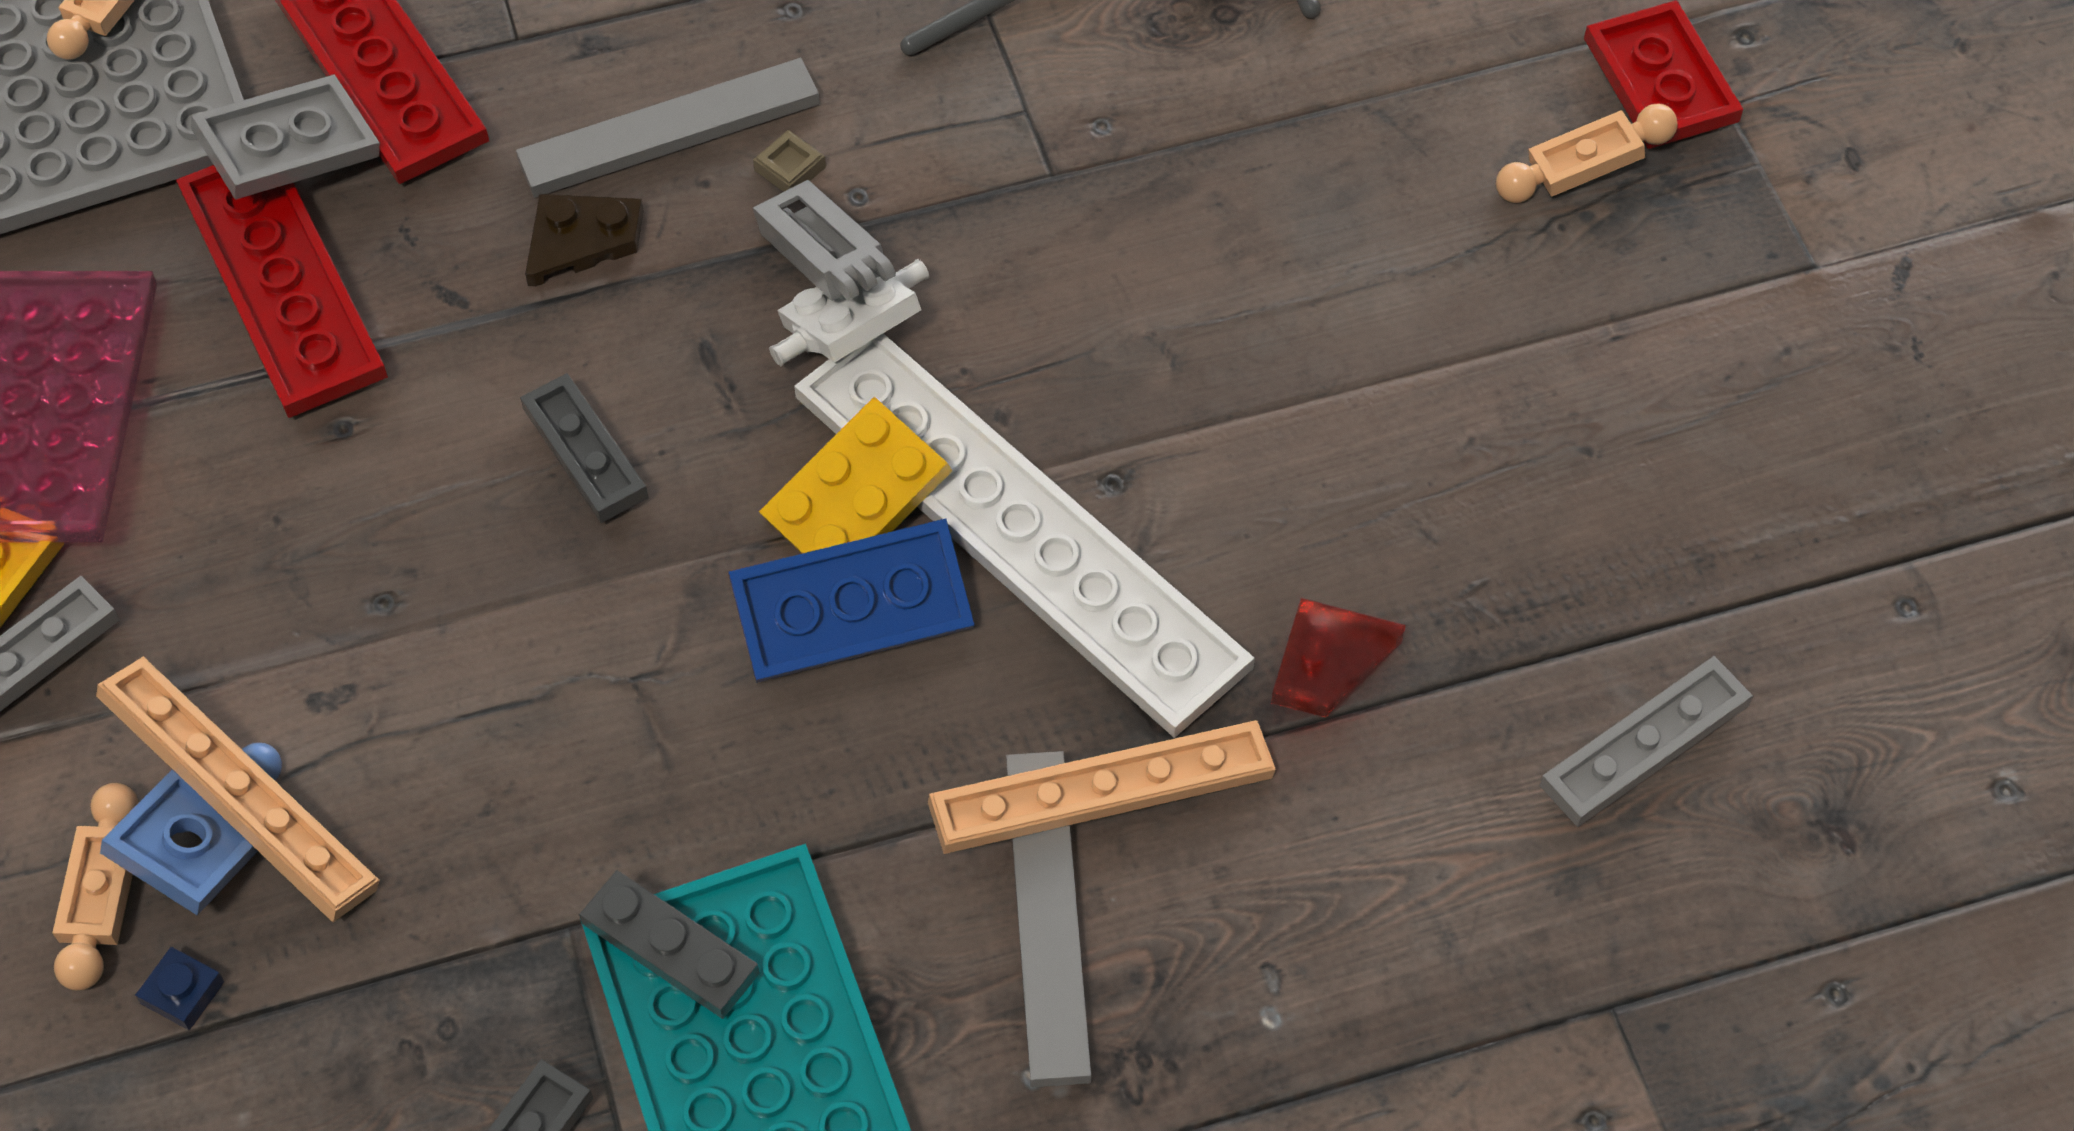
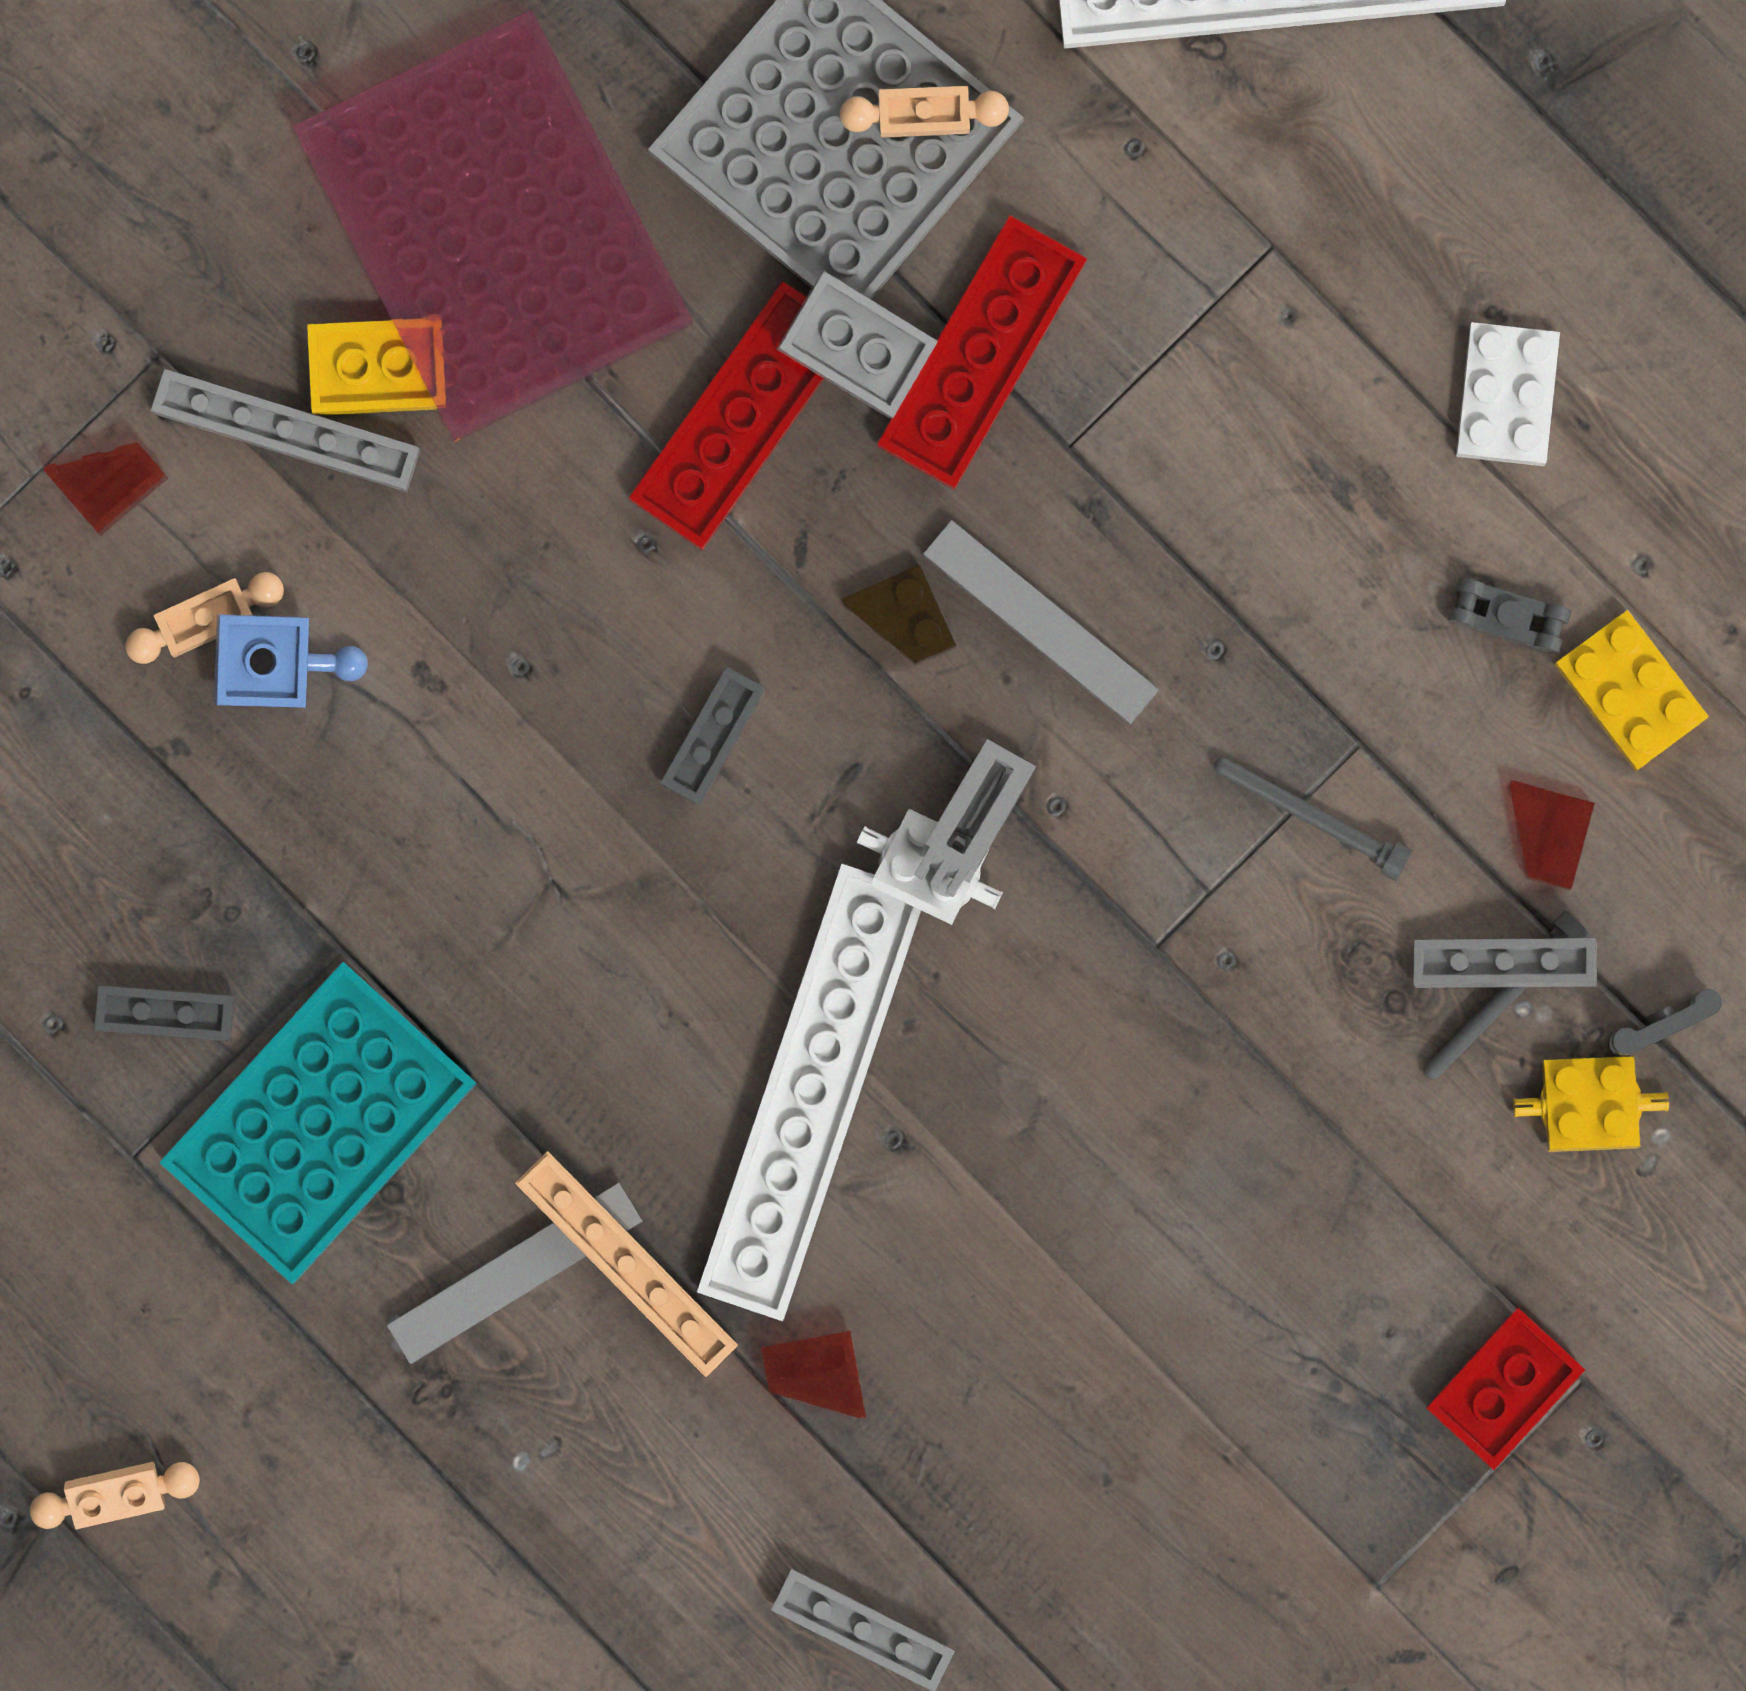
camera: 65 degrees right, 25 degrees up
(180, 988) = (166, 720): dark blue plate -> none
(238, 789) = (315, 668): light nougat tile -> none
(669, 944) = (351, 1034): dark grey plate -> none
(789, 162) = (1056, 736): dark tan tile -> none
(851, 600) = (680, 1008): blue plate -> none
(857, 483) = (774, 960): yellow plate -> none
(1586, 153) = (1384, 1363): light nougat plate -> none

